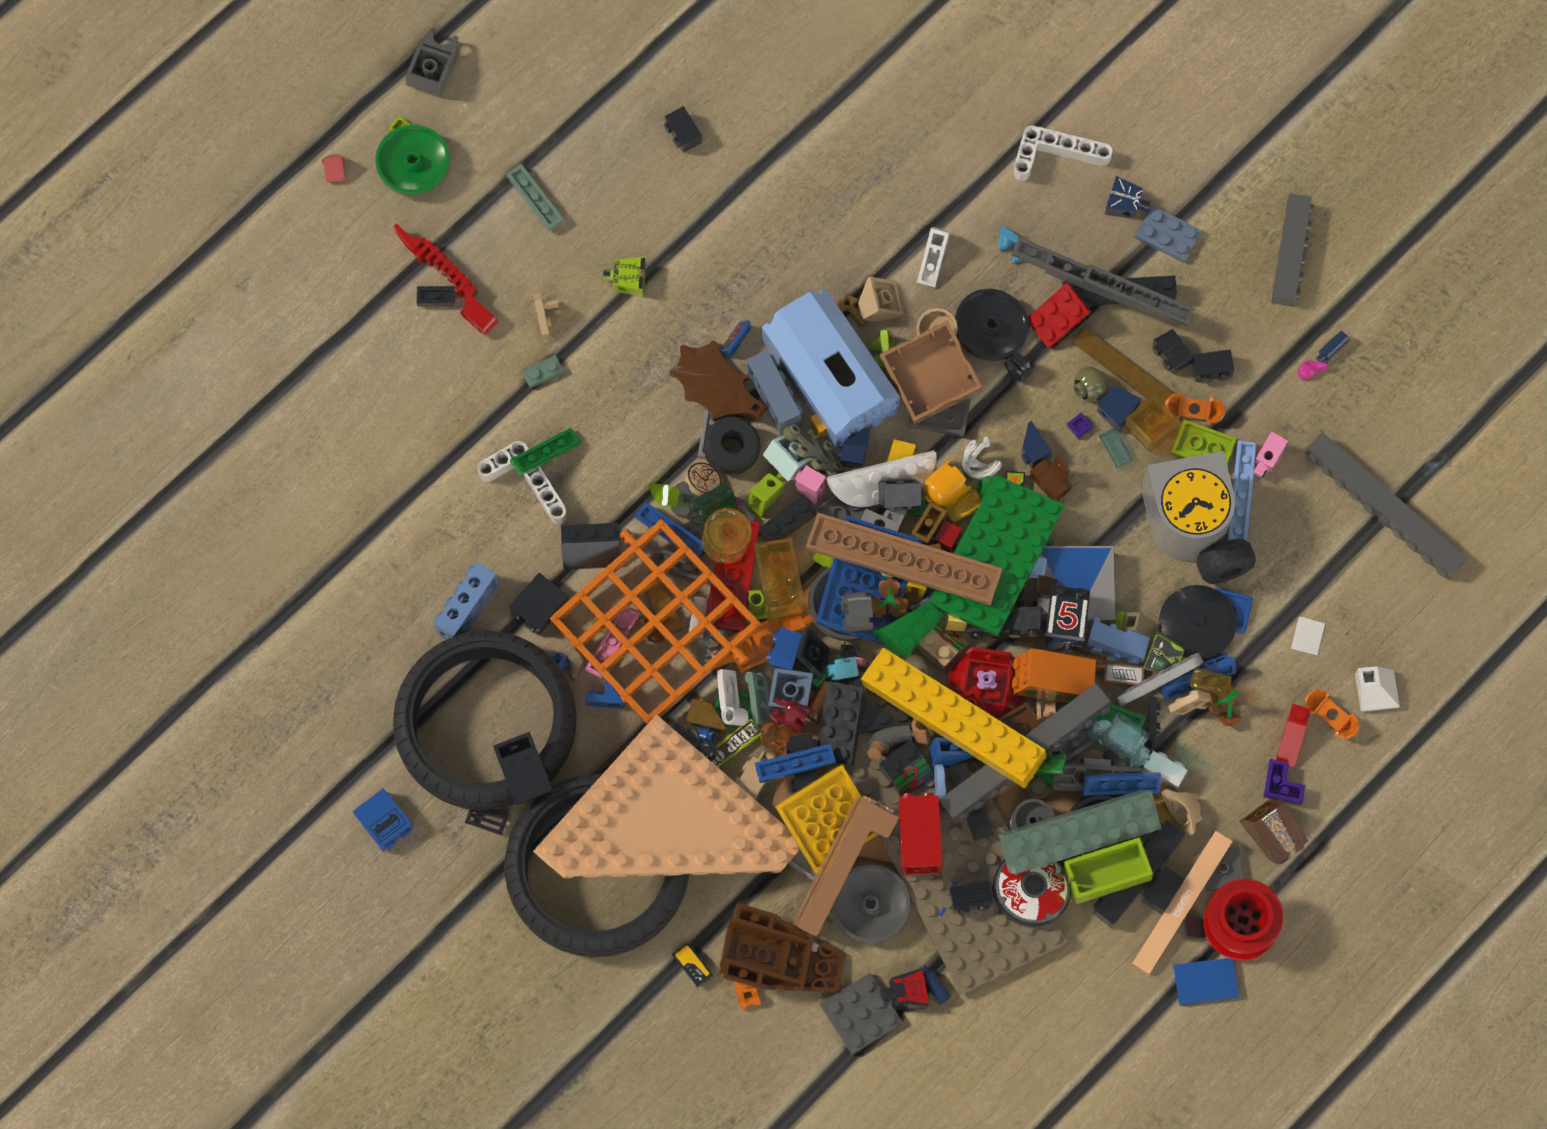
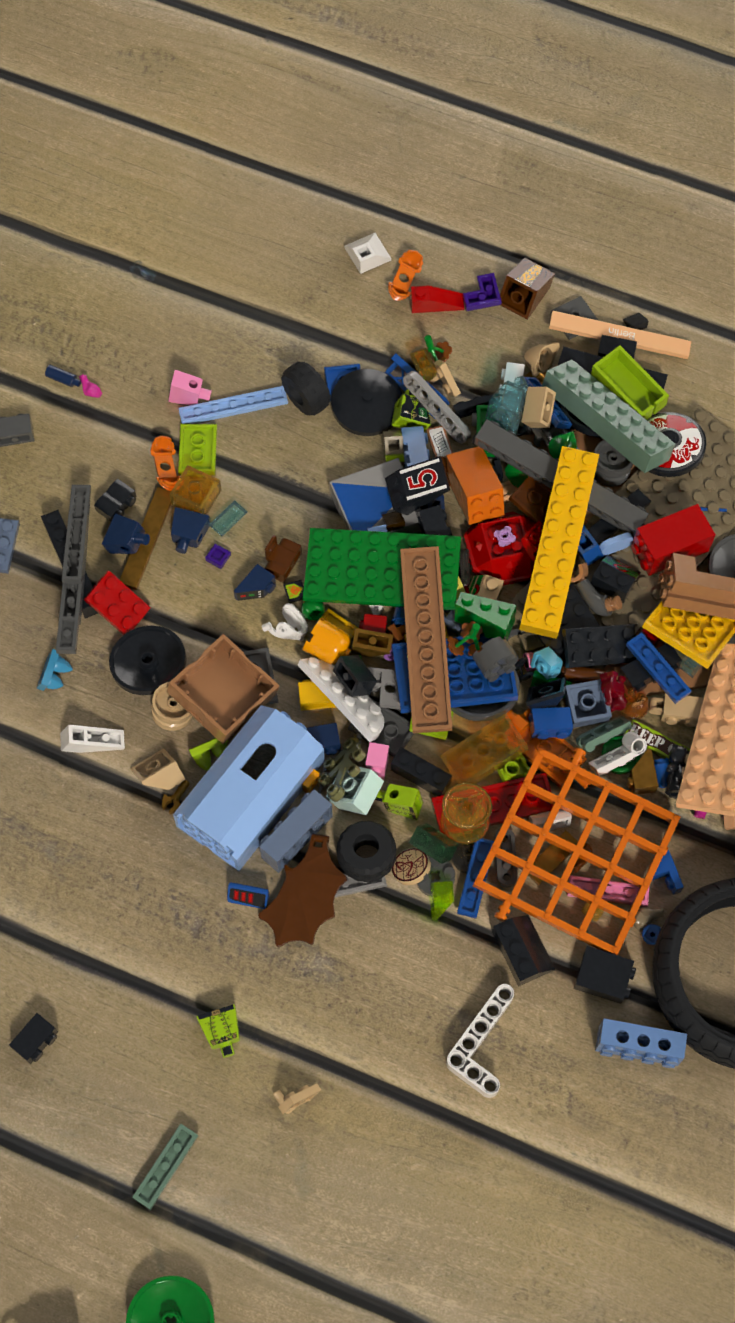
camera: 115 degrees left, 5 degrees down
(435, 296) = (318, 1227): black plate -> none
(473, 311) = (320, 1178): red piece -> none
(542, 371) = (357, 1076): sand green plate -> none
(545, 452) = (448, 1031): green tile -> none
(709, 647) = (578, 796): clear light blue tile -> none
(743, 508) = (424, 817): dark grey piece -> none
(970, 897) = (702, 486): black brick -> none
(971, 634) = (465, 566): none -> clear smoke tile
(1018, 366) = (182, 623): black wheel -> none
(1090, 384) = (174, 557): olive plant -> none
(1112, 765) = (538, 407): none -> tan brick
(1130, 346) = (124, 536): none -> dark blue torso
(1189, 504) = (268, 423): brick -> none
(1205, 981) = (675, 300): blue tile -> none
(1213, 366) = (117, 463): black brick -> none
(1259, 900) = (614, 295): red wheel -> none
(1308, 636) = (340, 318): white sticker -> none
(1385, 505) = (198, 294): dark grey brick -> none

